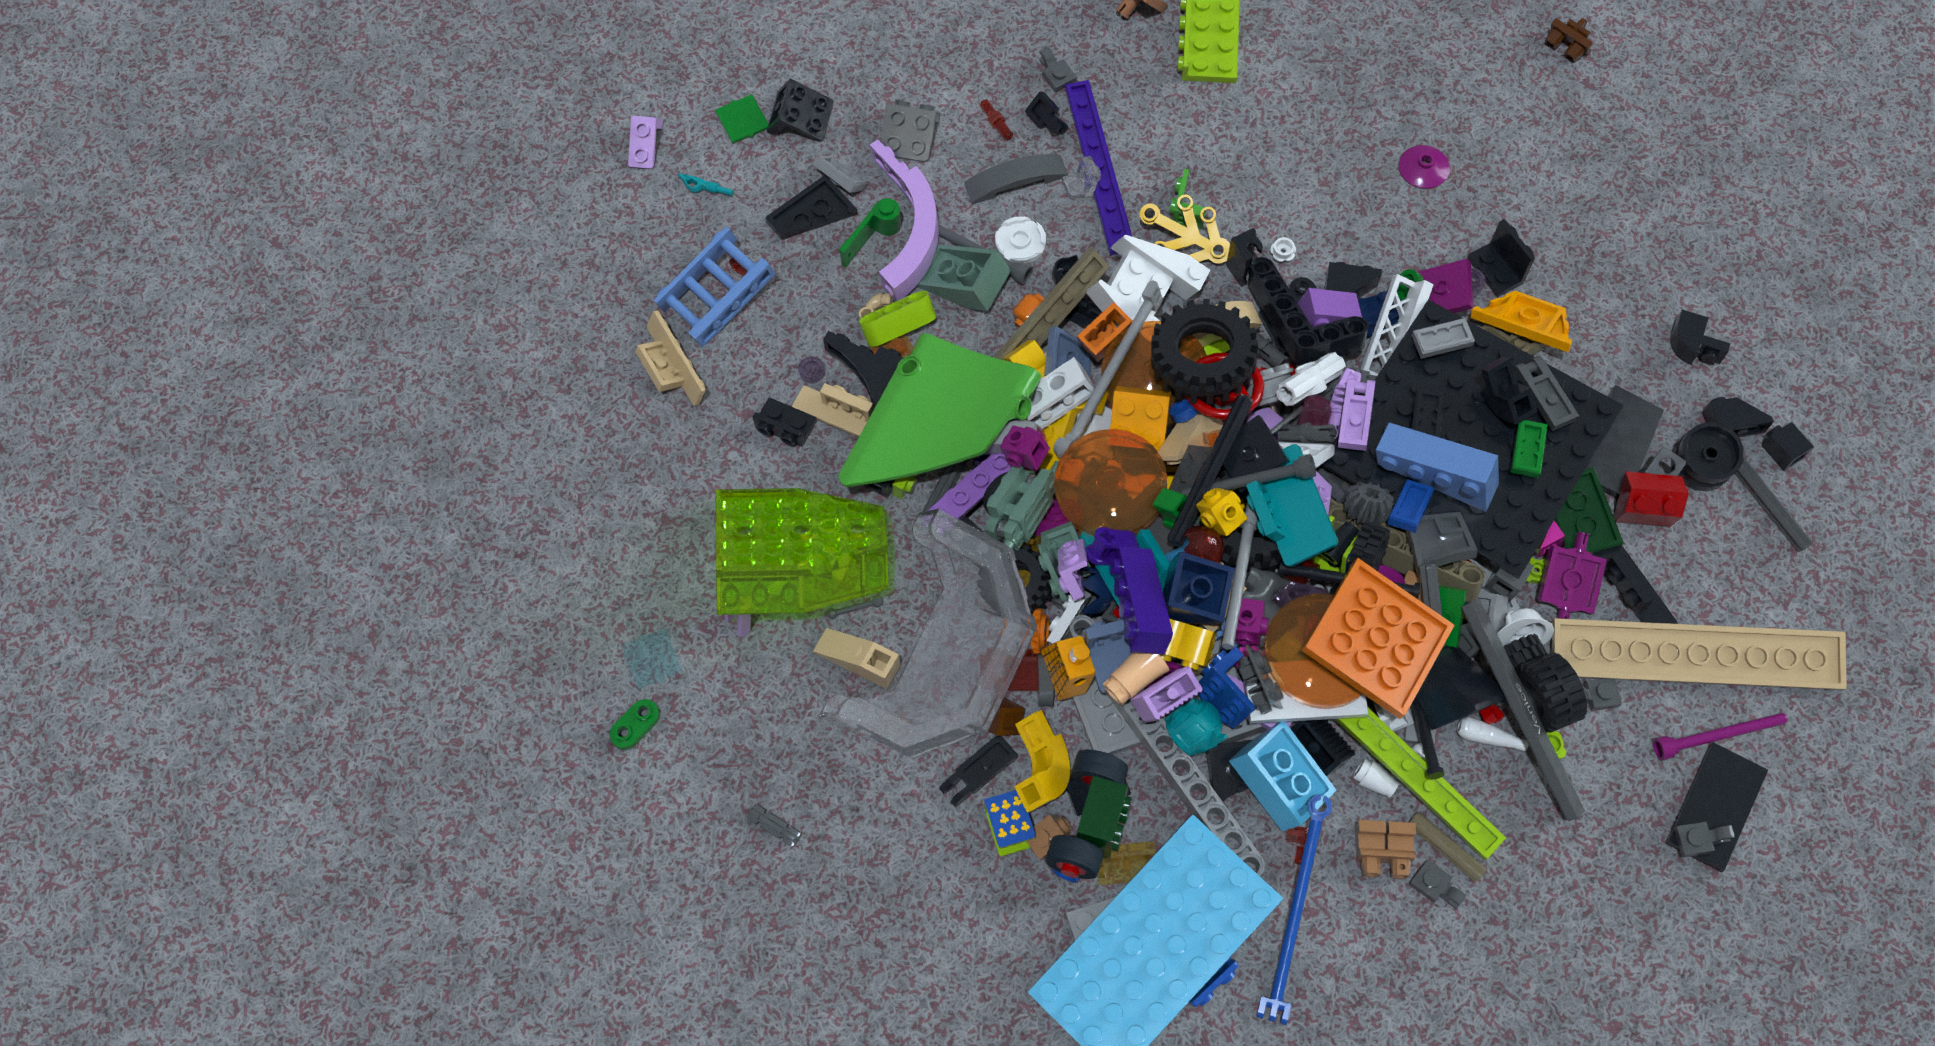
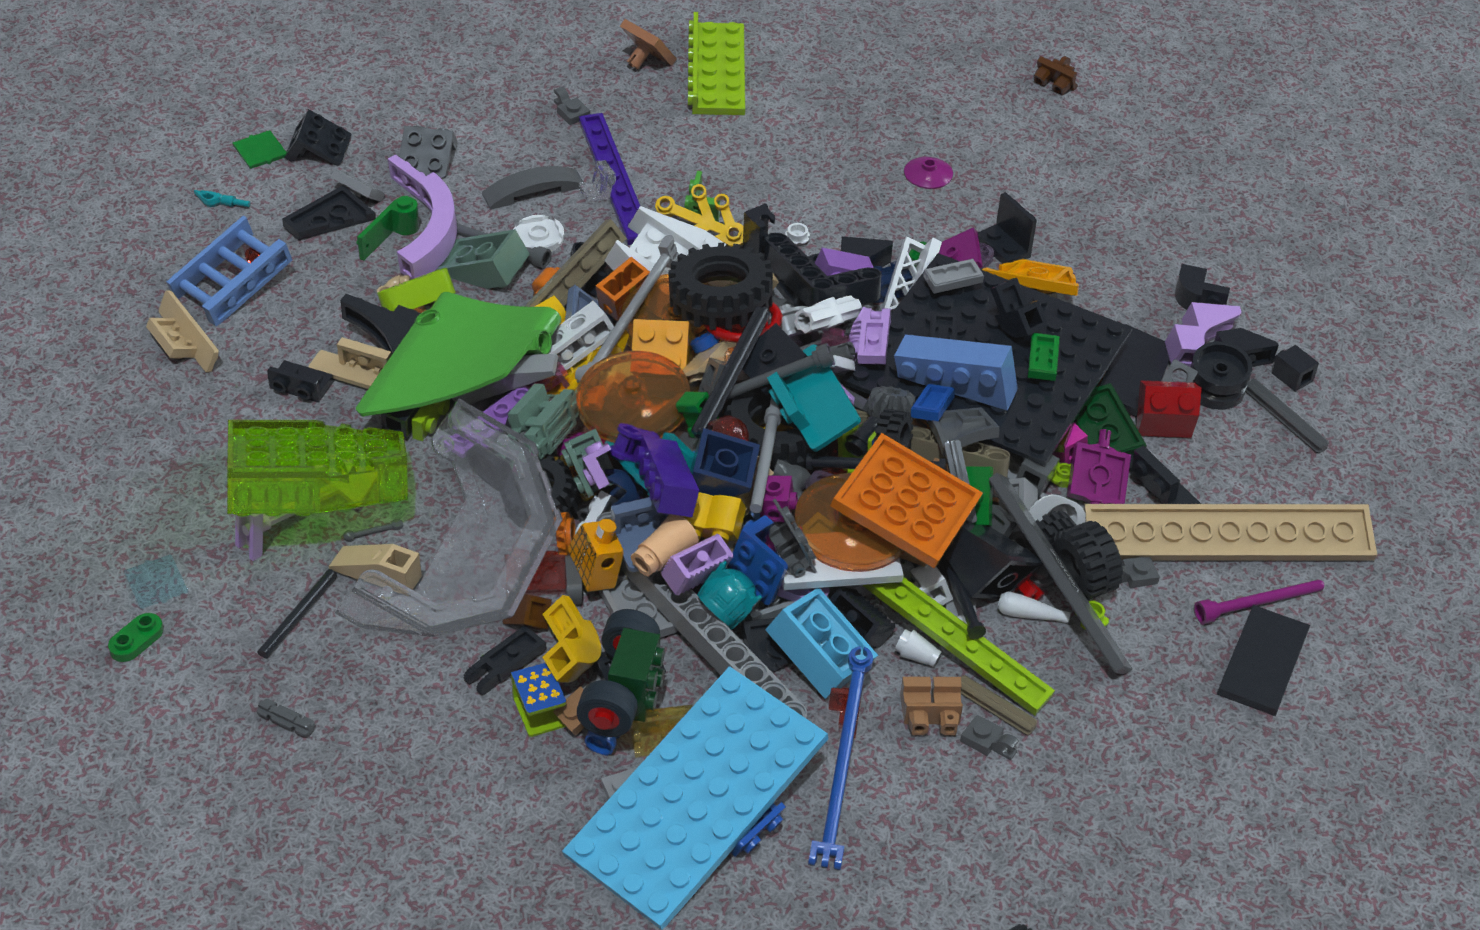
camera: 10 degrees left, 20 degrees down
(643, 141) = (159, 163): lavender bracket -> none
(783, 704) = (297, 613): none -> black bar
(811, 370) = (327, 339): clear purple tile -> none
(996, 119) = (512, 144): clear red bar -> none
(1024, 447) = (545, 365): magenta brick -> none
(1043, 113) = (559, 136): black plate -> none
(1221, 510) = (744, 401): yellow brick -> none
(1547, 393) = (1059, 315): dark grey plate -> none
(1678, 411) = (1198, 327): none -> lavender arch
(1699, 840) = (1248, 683): dark grey plate -> none

